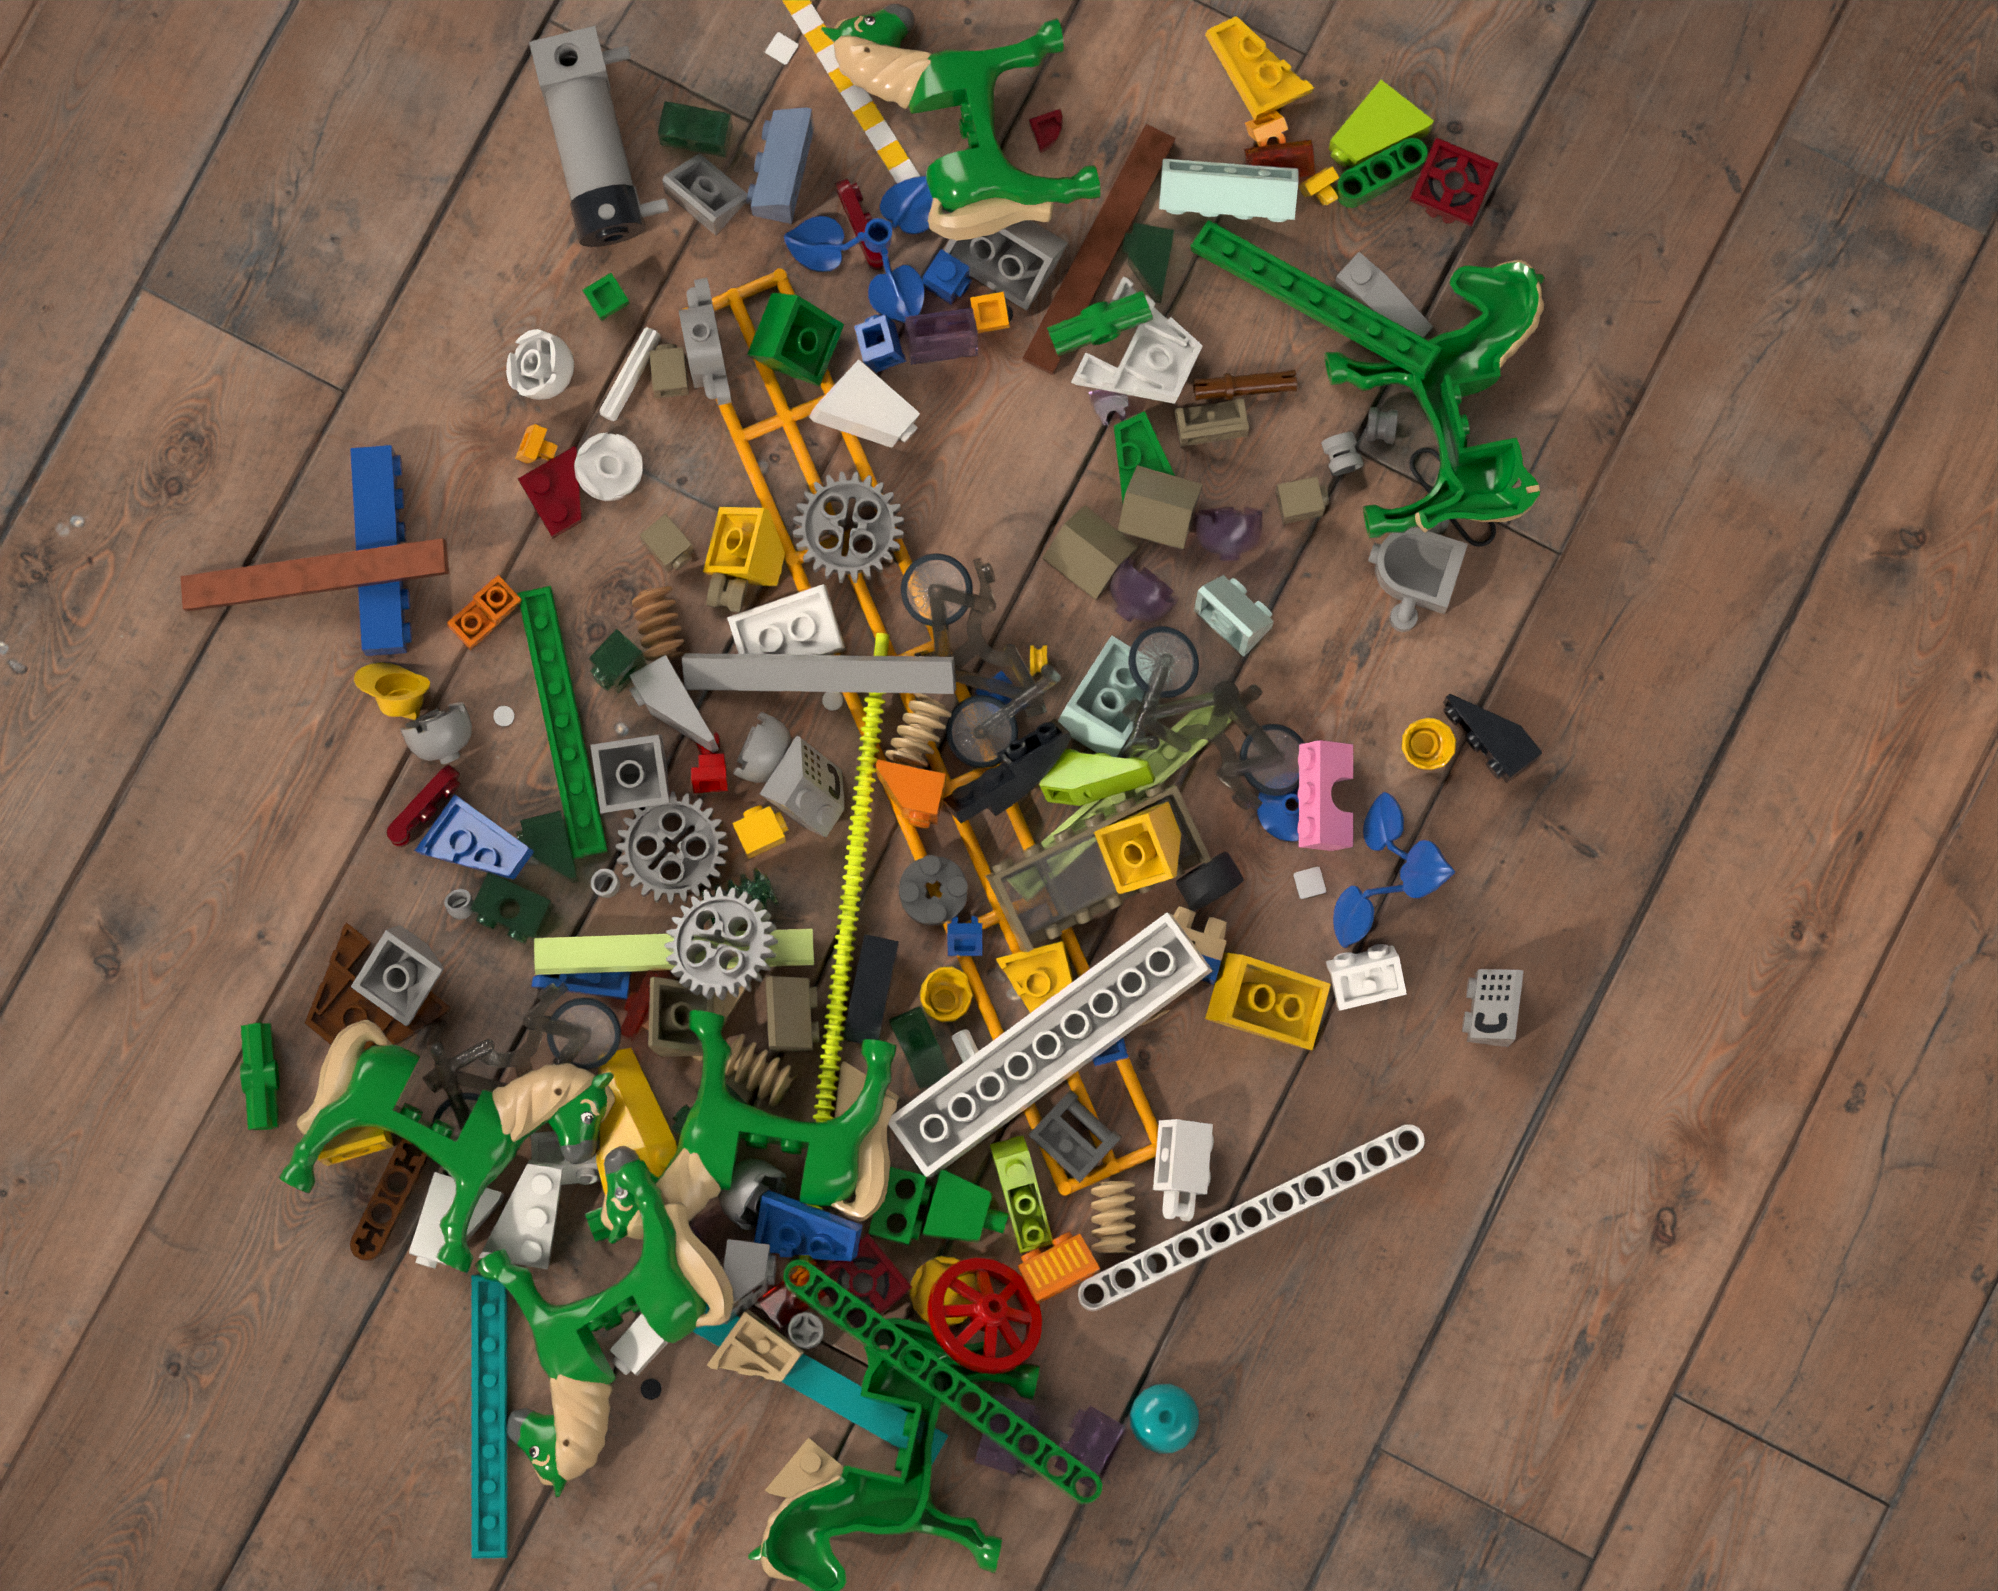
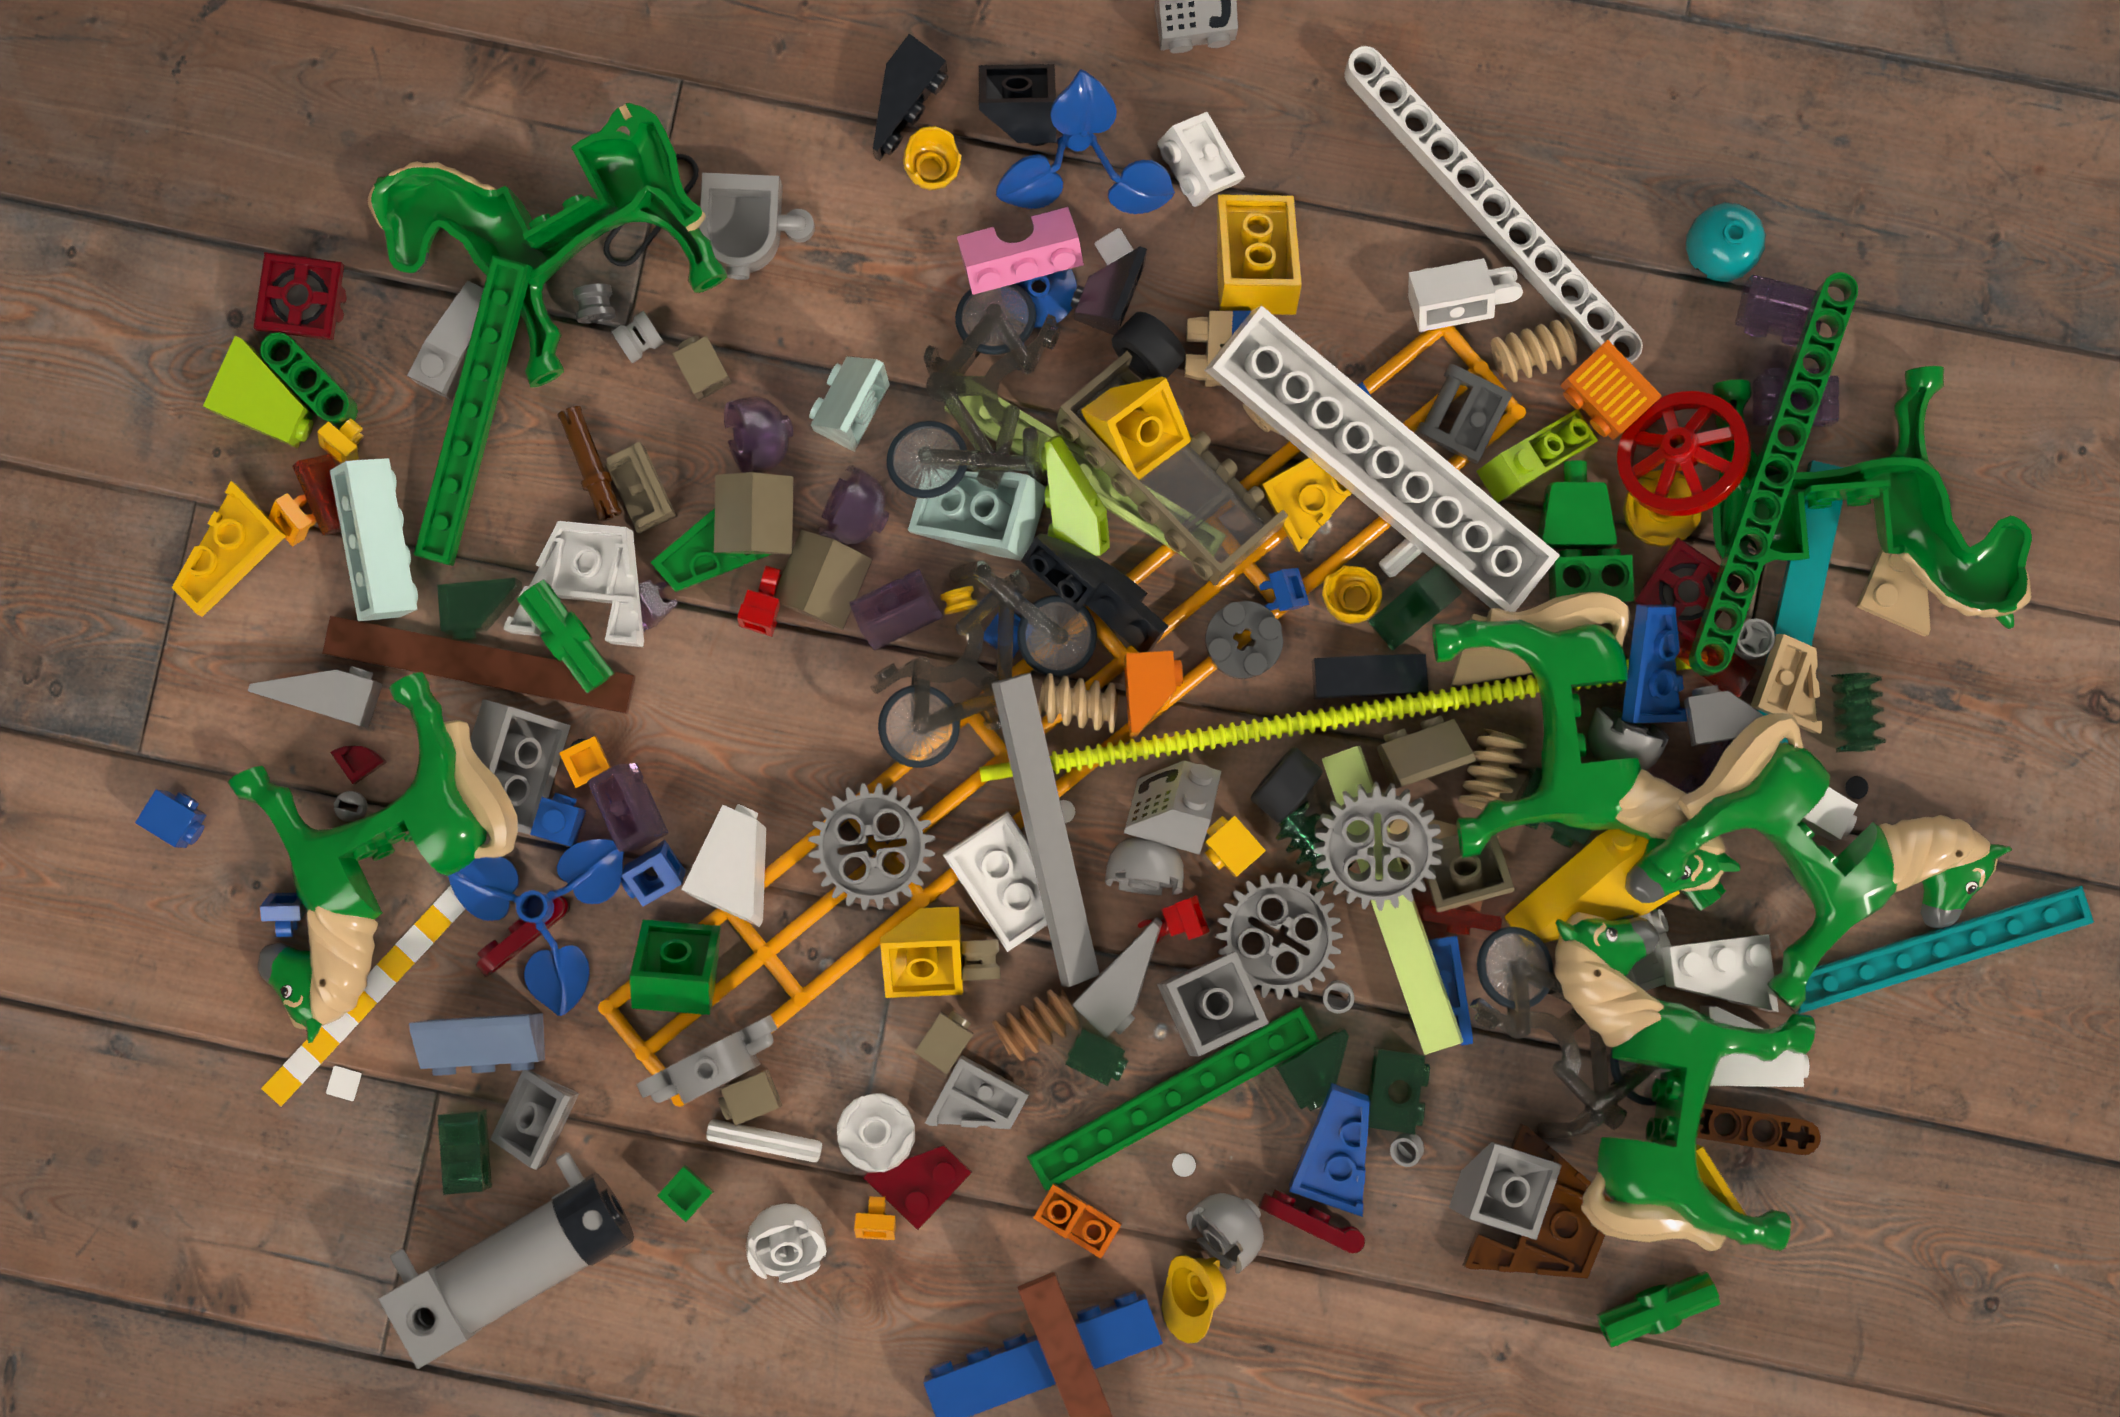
camera: 110 degrees left, 5 degrees up
(611, 558) = (977, 1098): none -> light grey wing
(715, 1405) = (1858, 712): none -> clear green piece
(797, 888) = (1286, 784): none -> black tyre
(938, 36) = (285, 910): none -> blue tile
(1016, 117) = (352, 798): none -> light grey hinge
(1044, 603) = (896, 609): none -> brick
(1078, 492) = (761, 608): none -> red piece
(1105, 127) = (330, 693): none -> light grey slope
(1266, 862) = (1109, 292): none -> black slope
(1464, 832) = (1020, 100): none -> black slope

